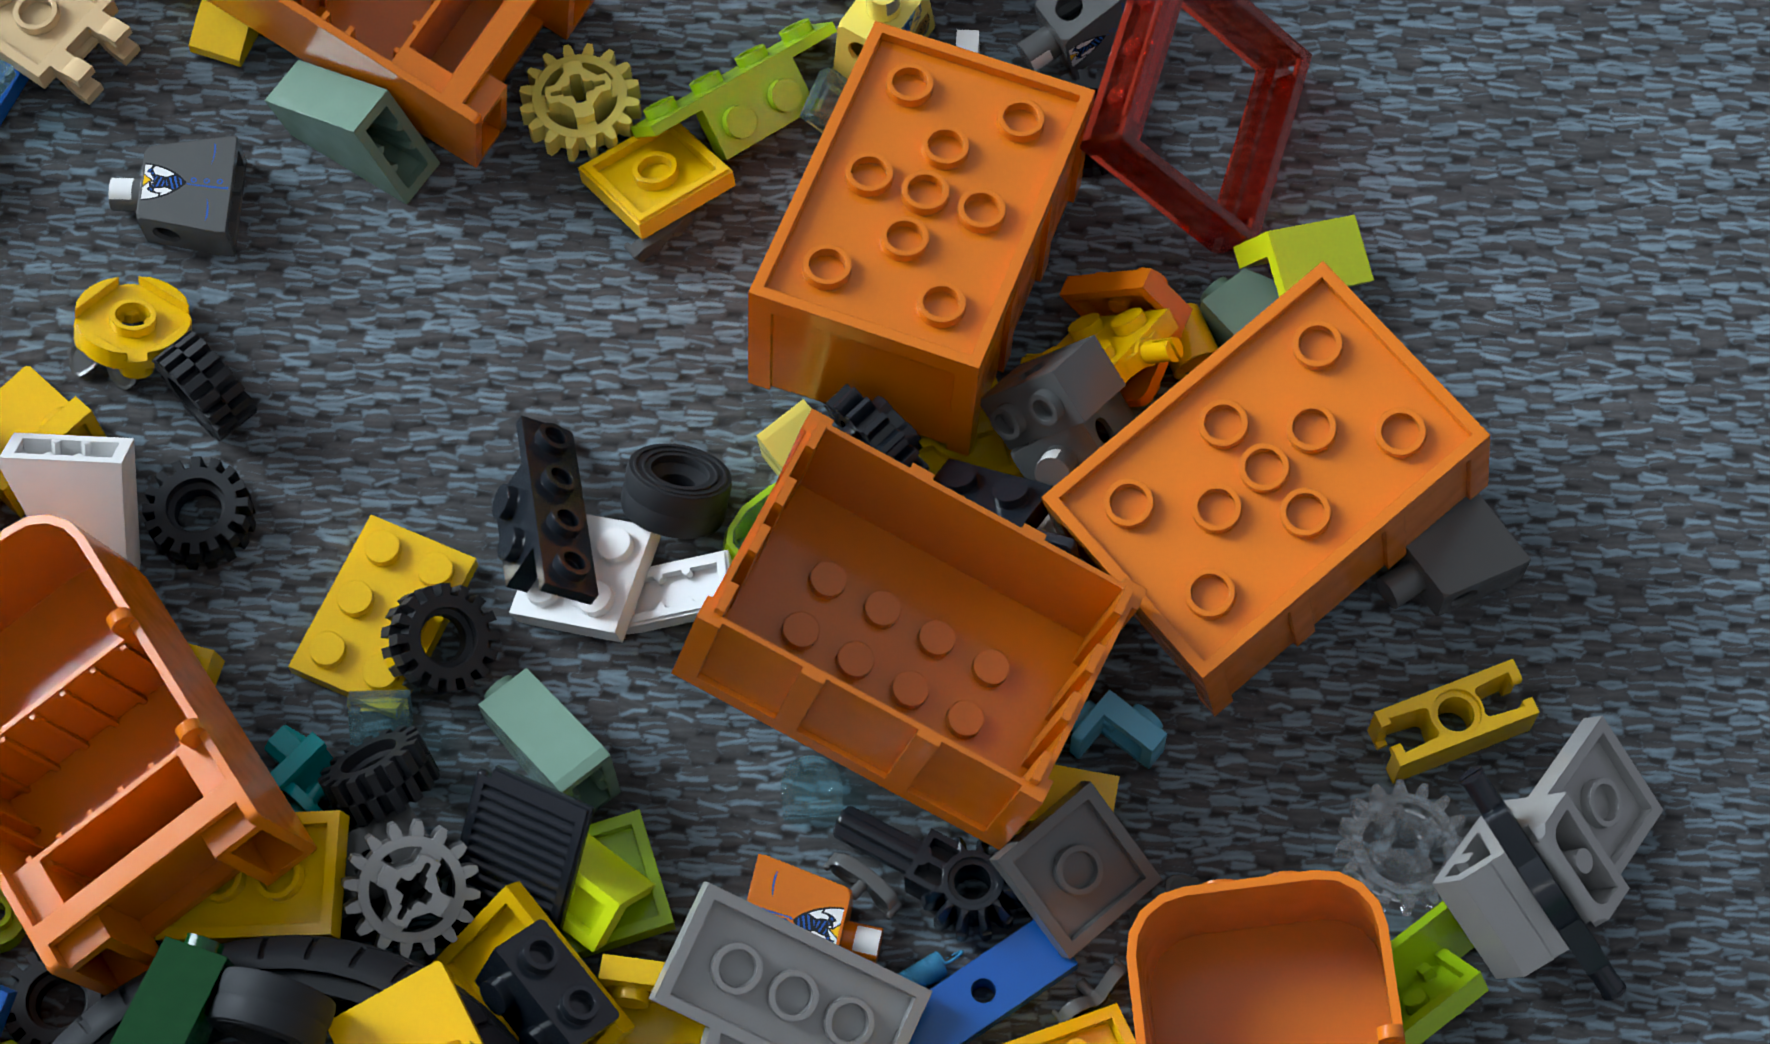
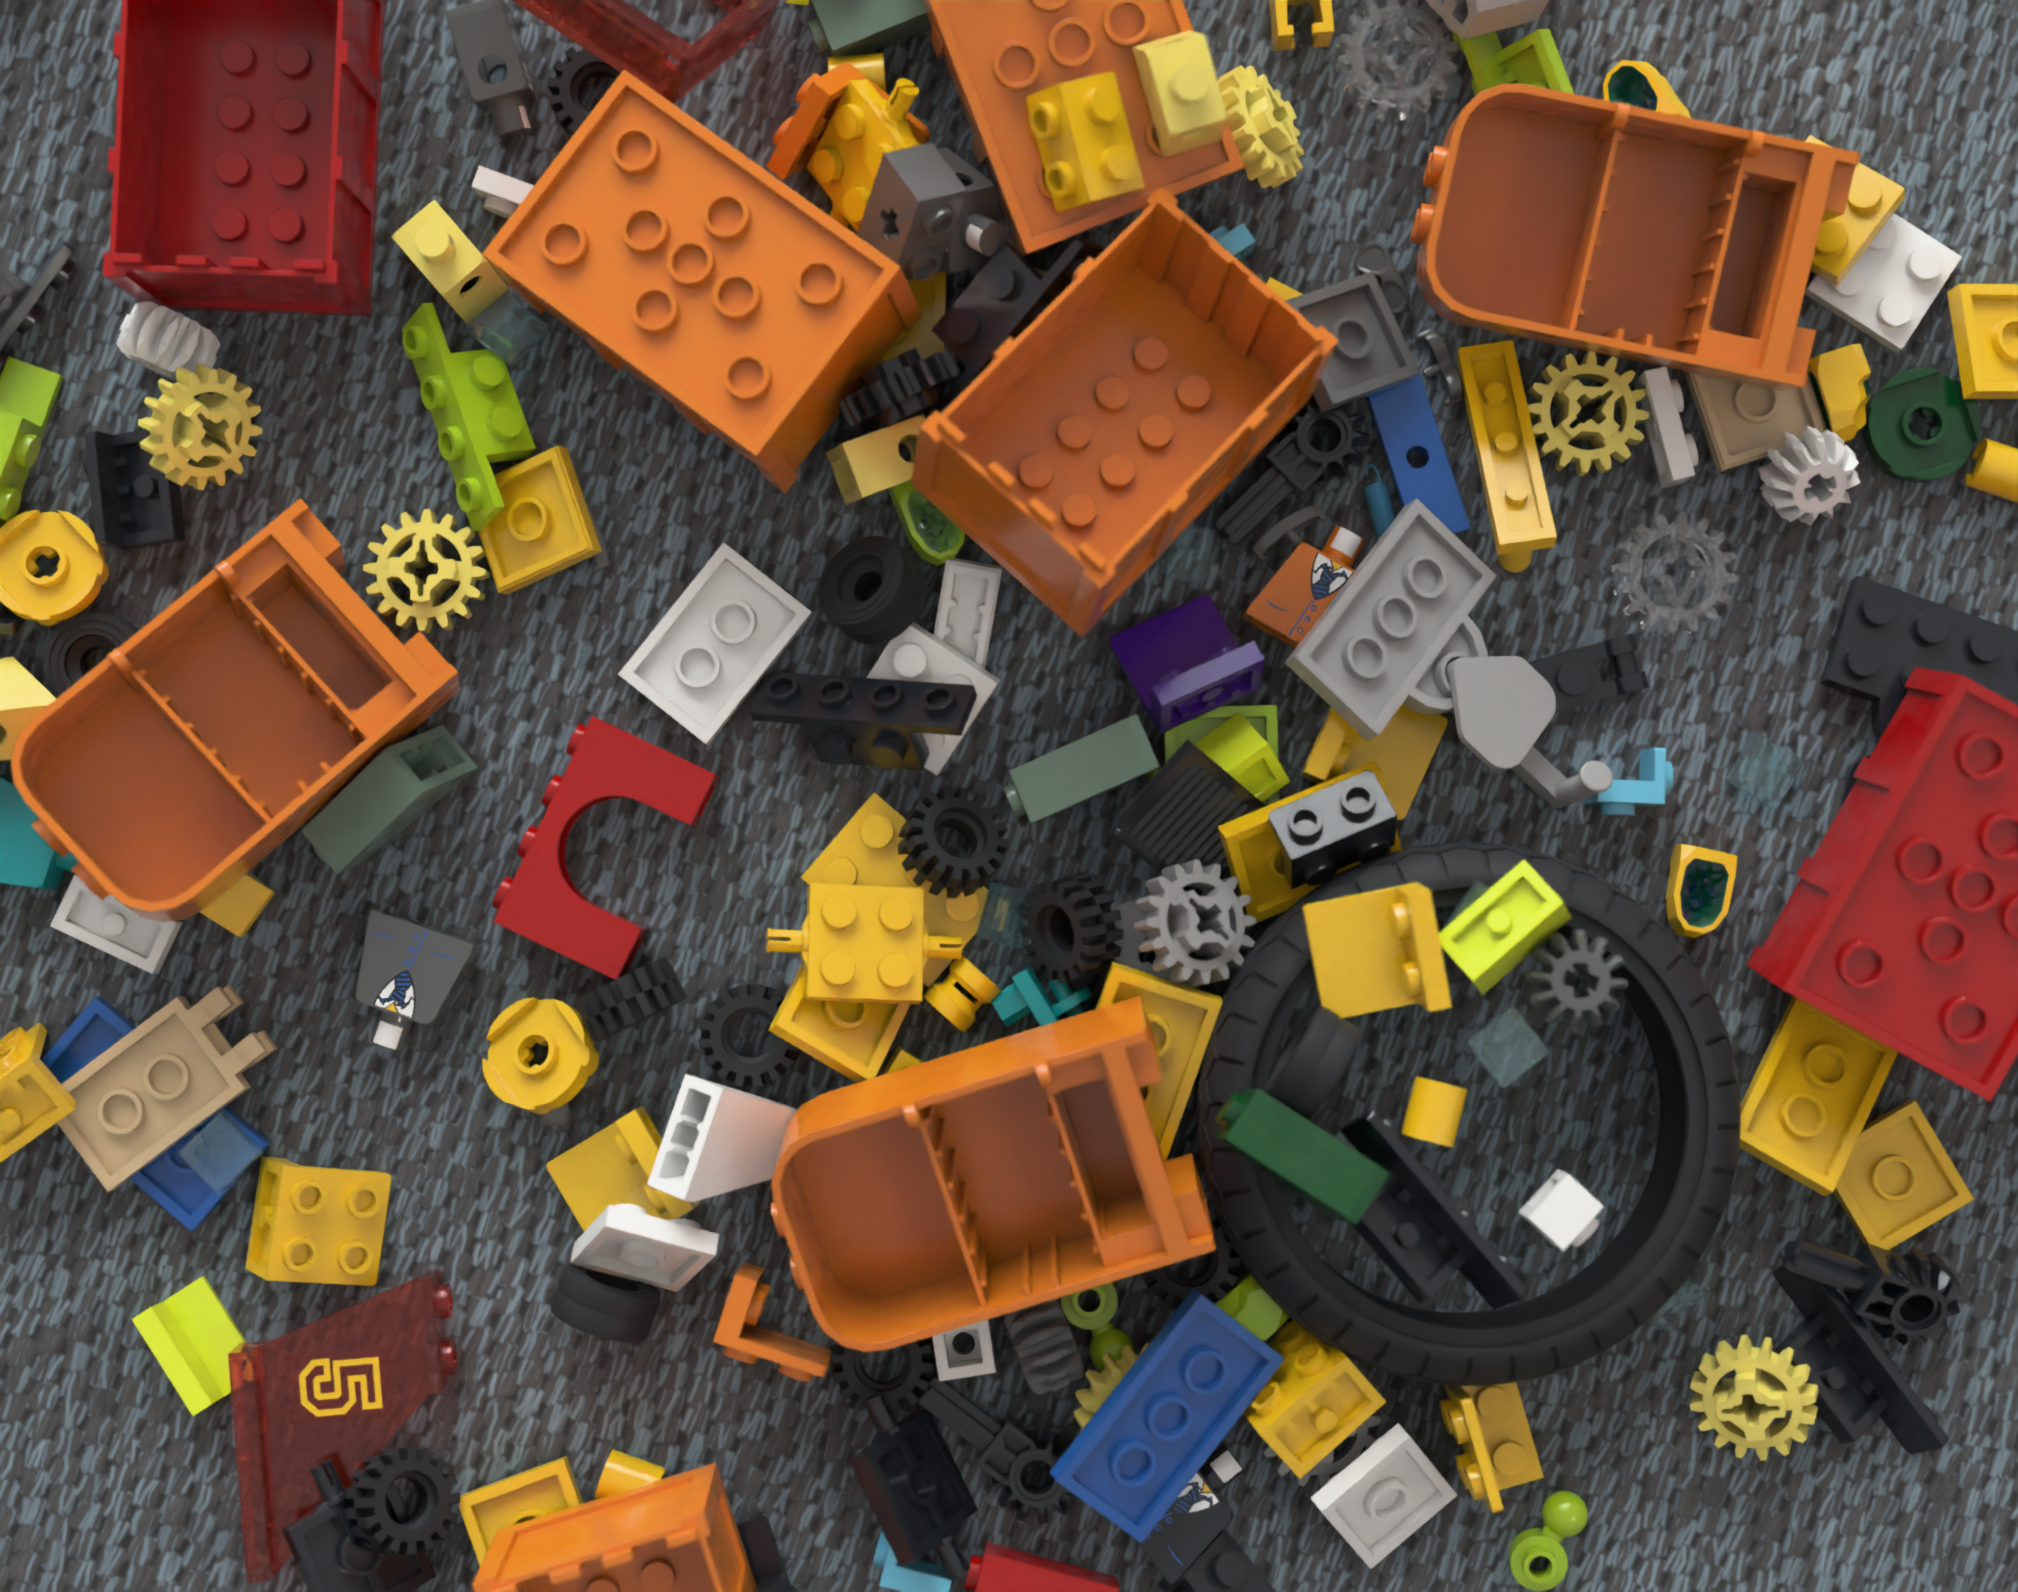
camera: 75 degrees left, 20 degrees up
(243, 583) = (840, 1034): none -> yellow plate
(288, 697) = (955, 1004): none -> yellow wheel
(292, 286) = (542, 897): none -> red arch
(311, 578) = (864, 943): none -> yellow plate
(584, 372) = (715, 643): none -> white plate
(688, 814) = (1186, 663): none -> dark purple bracket
(1168, 506) = (1084, 141): none -> yellow bracket
(1244, 574) = (1181, 92): none -> light yellow torso
(1271, 718) = (1261, 127): none -> light yellow gear

